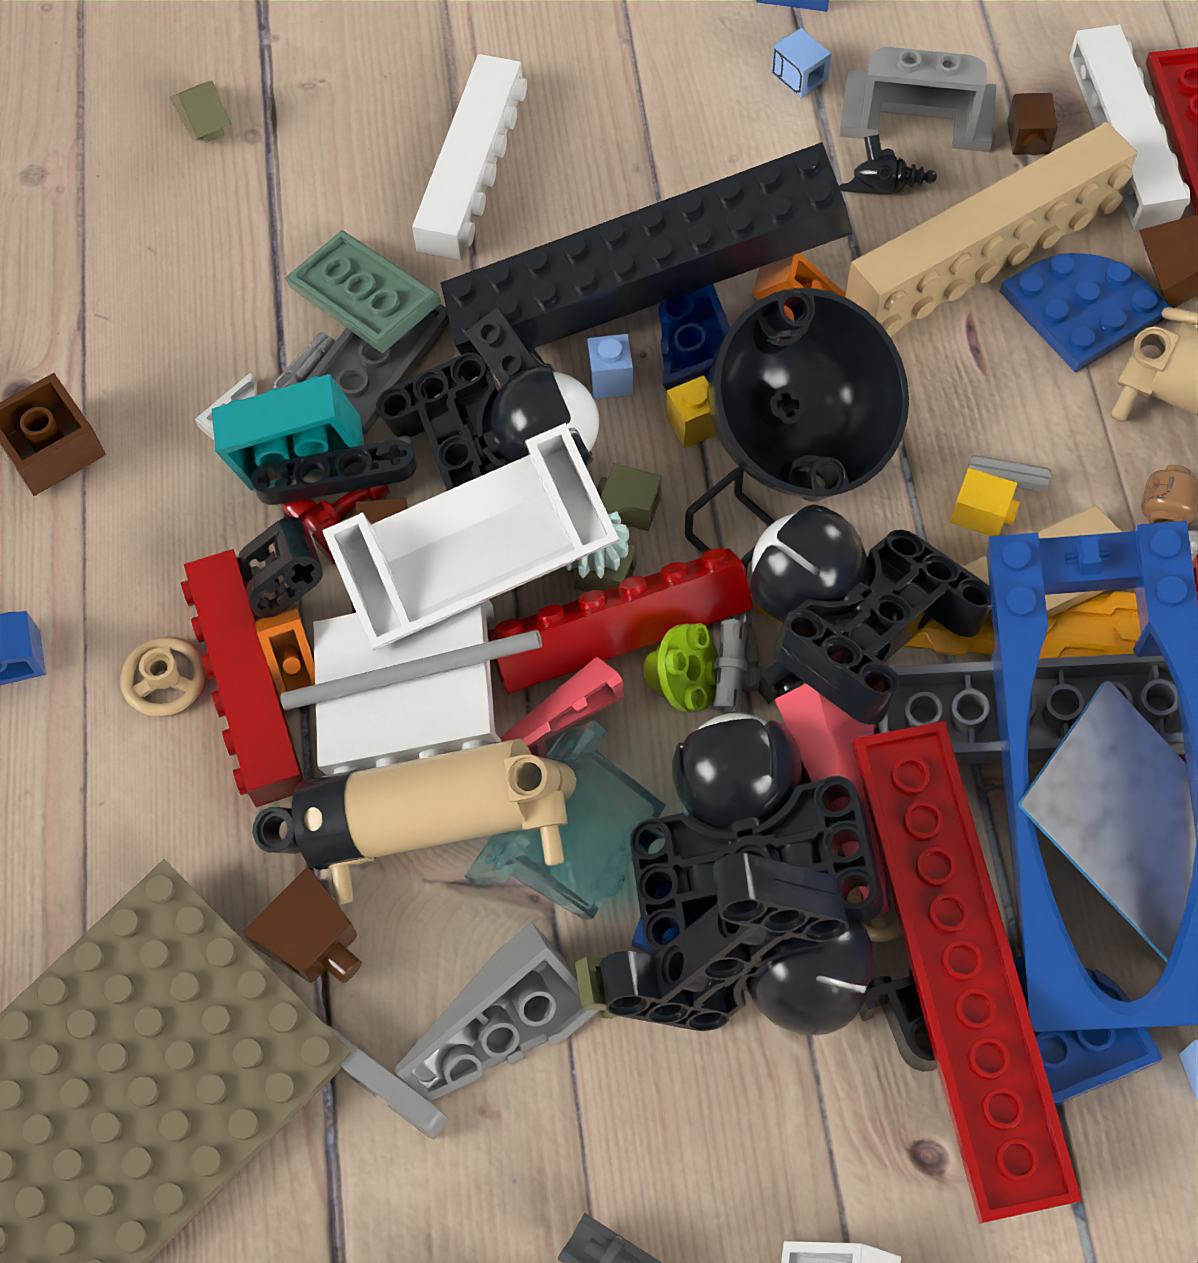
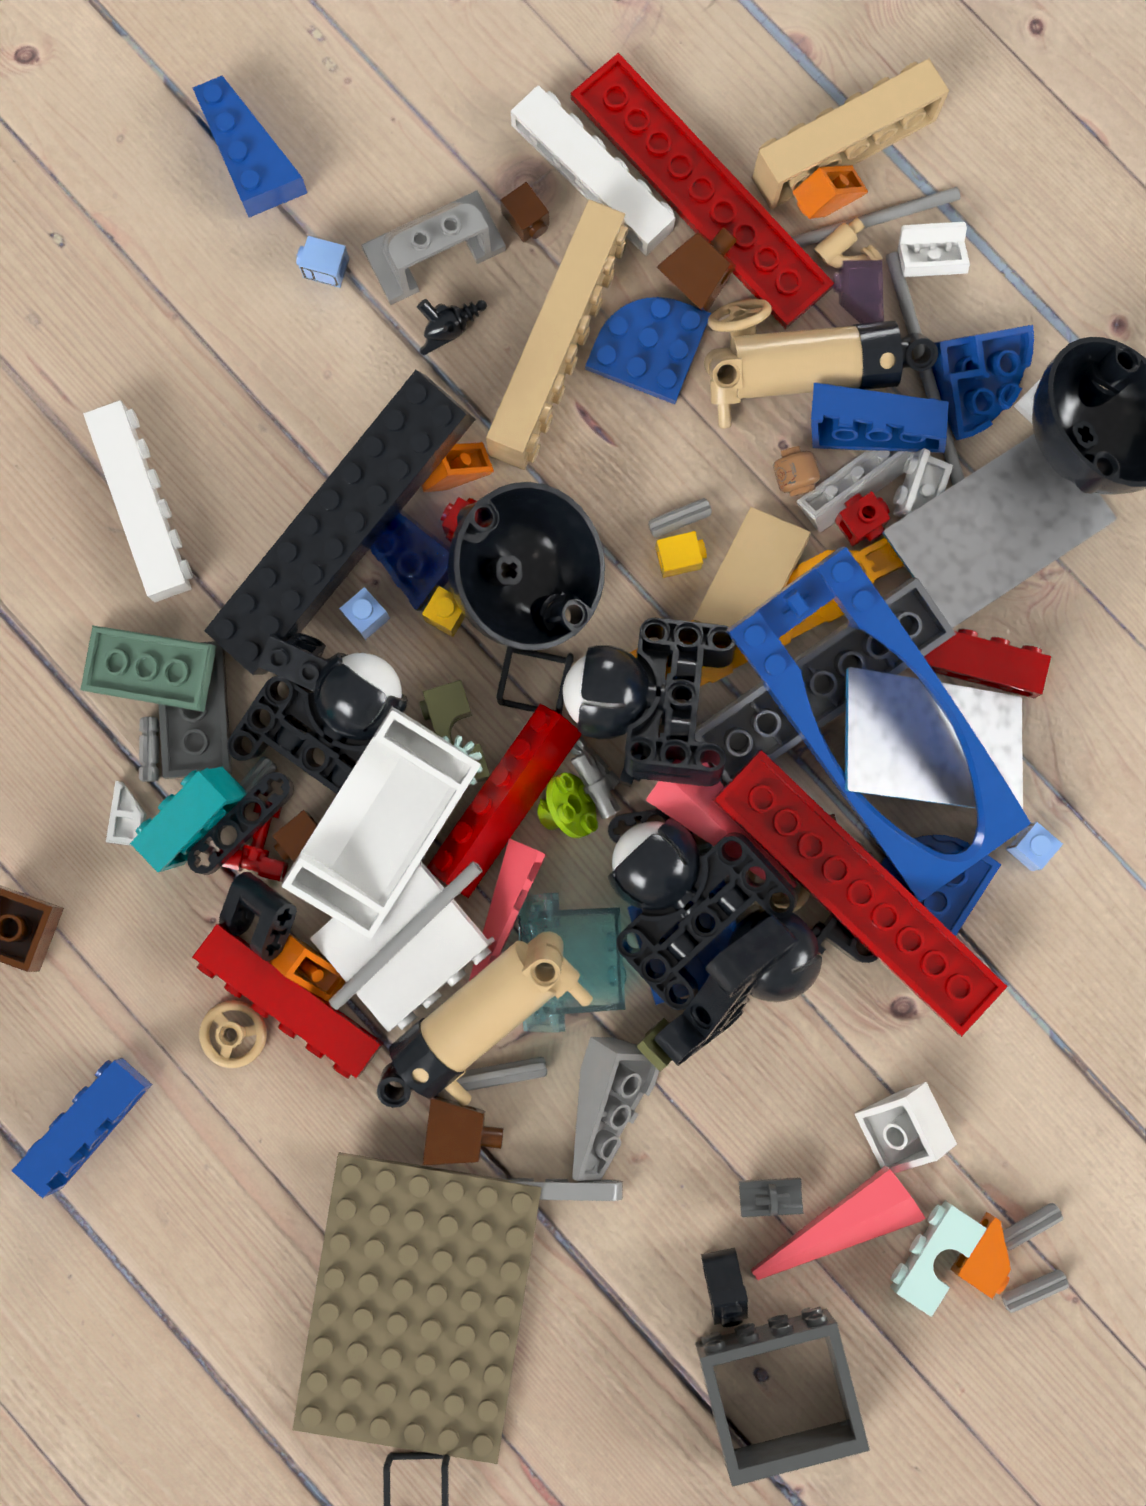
camera: 40 degrees left, 20 degrees up
(405, 904) = (503, 1074): none -> light grey axle

